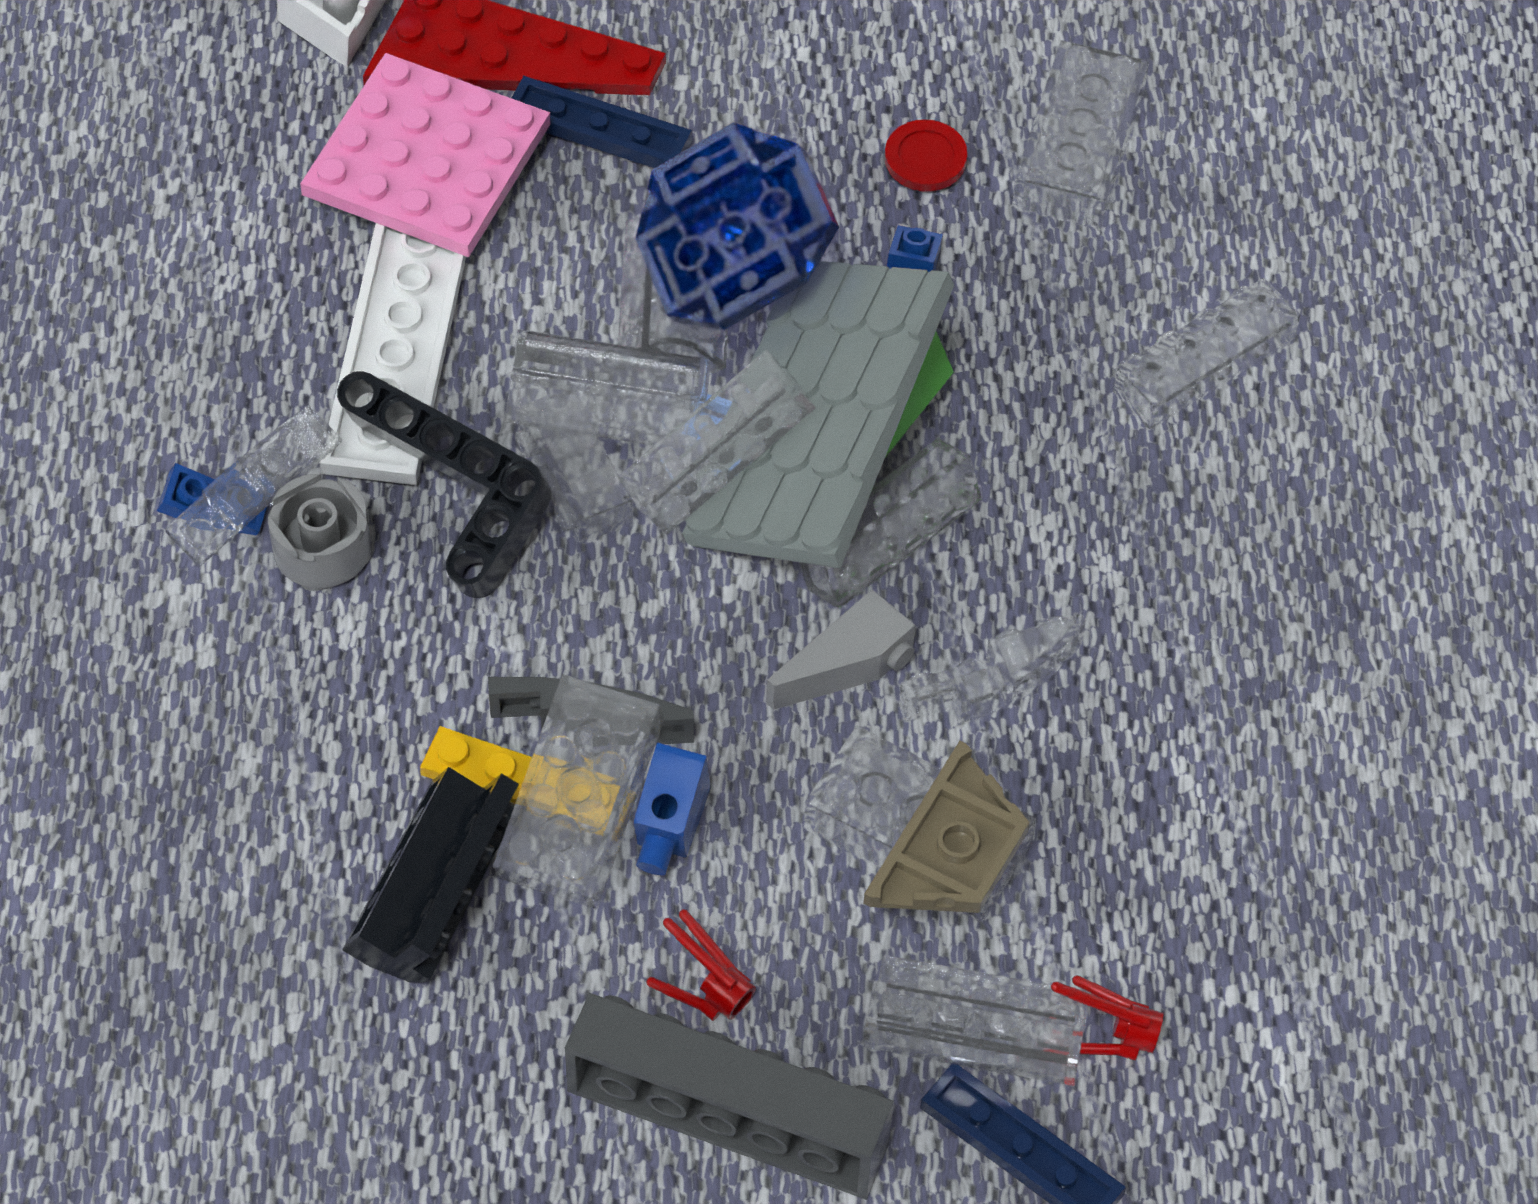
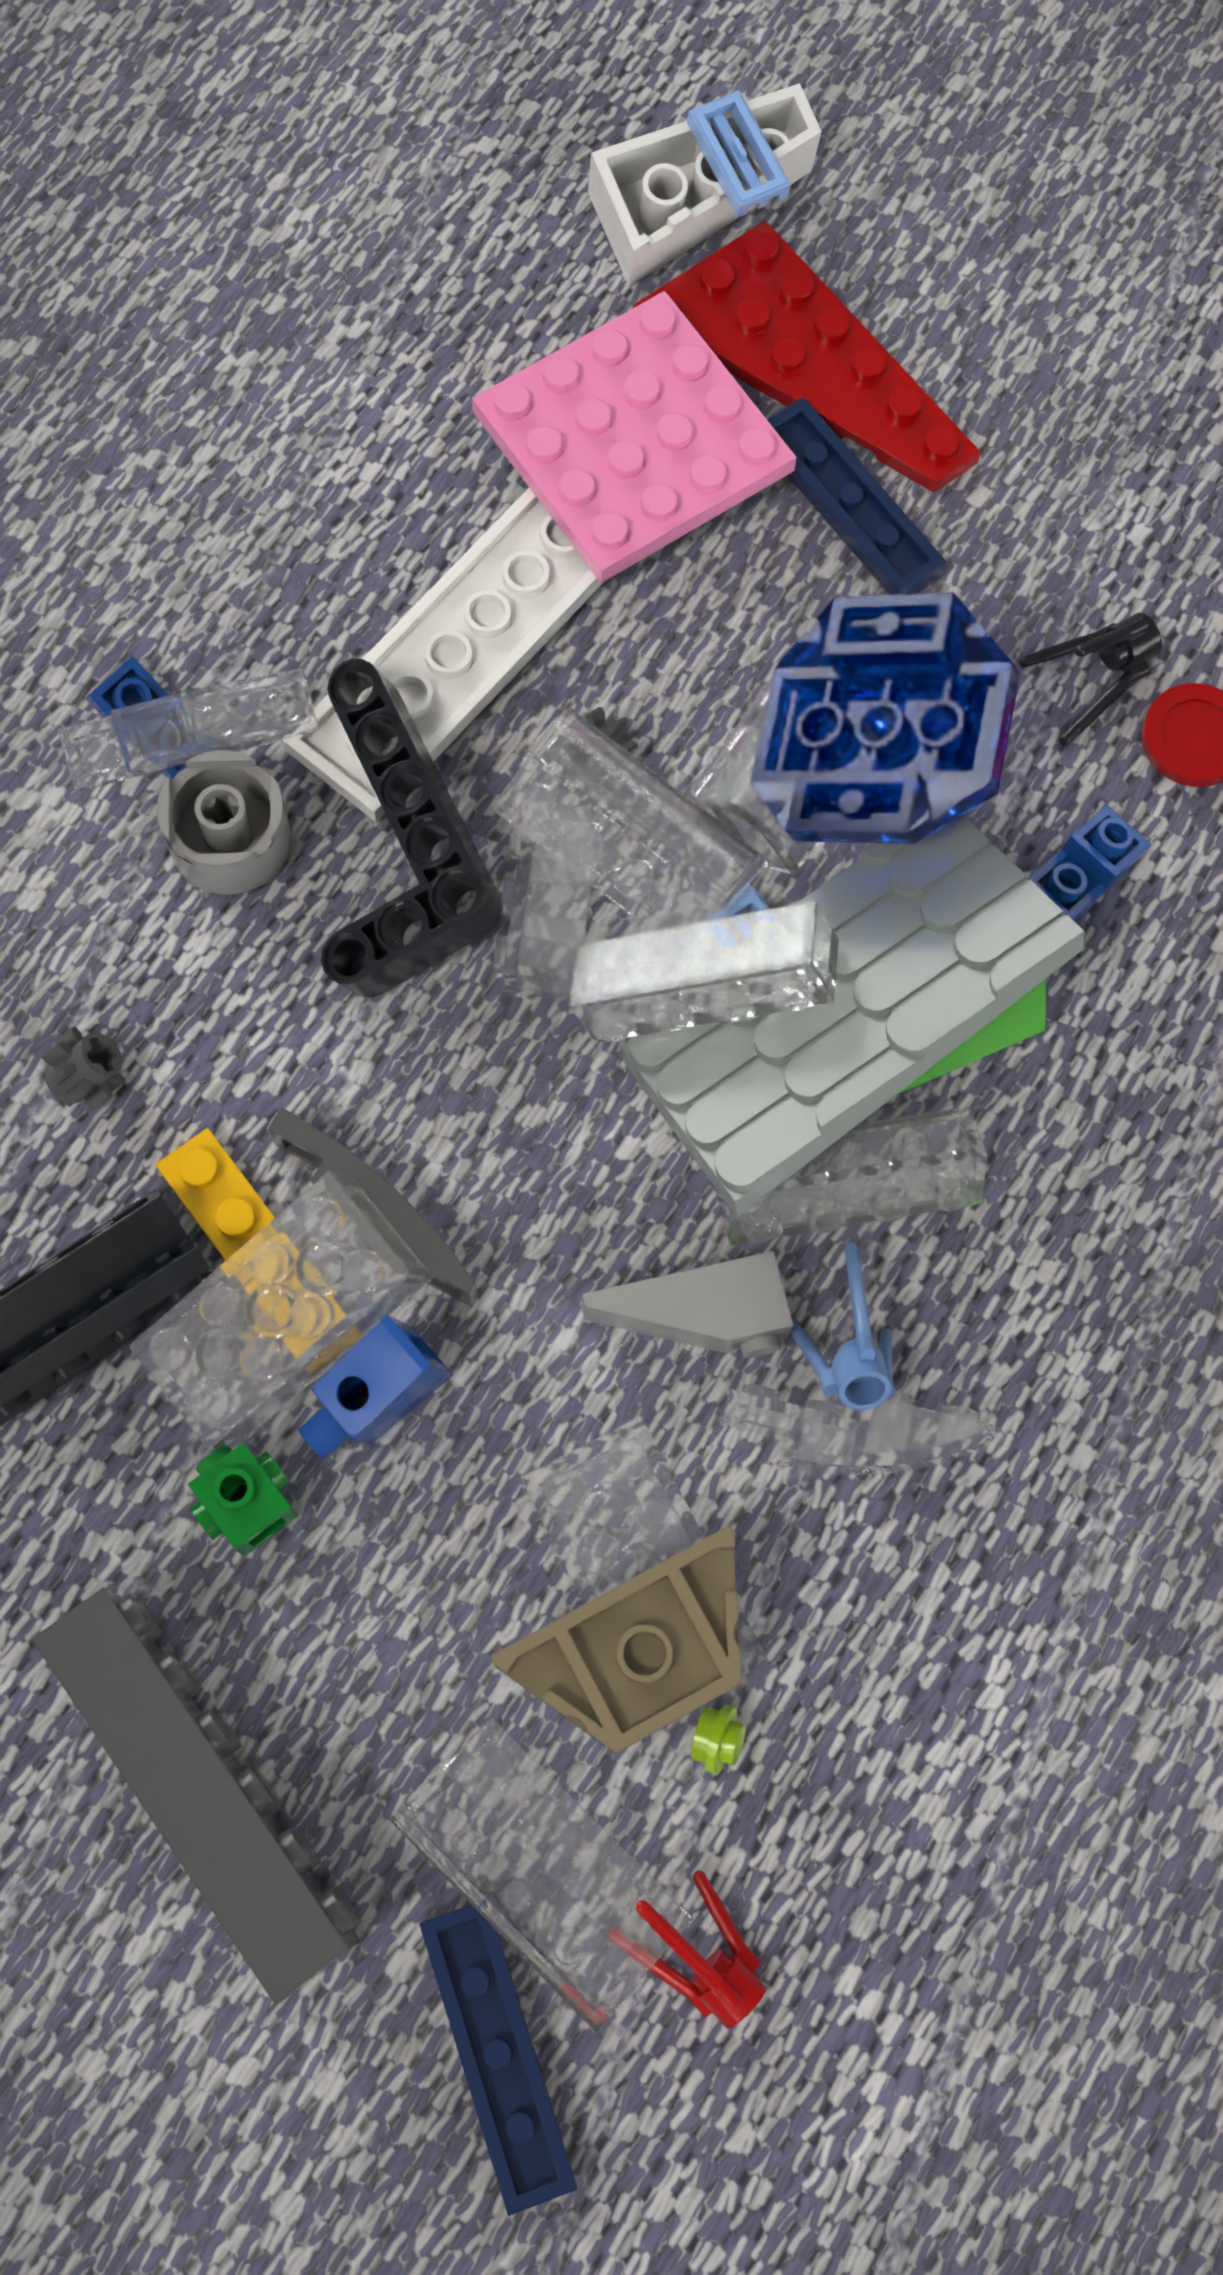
camera: 30 degrees right, 15 degrees up
(330, 732) = (83, 1068): none -> dark grey gear
(628, 922) = (253, 1517): none -> green brick
(725, 986) = (298, 1639): red plant -> none
(843, 126) = (1120, 647): none -> black plant
(972, 622) = (859, 1369): none -> medium blue plant
(1033, 893) = (718, 1738): none -> lime plate

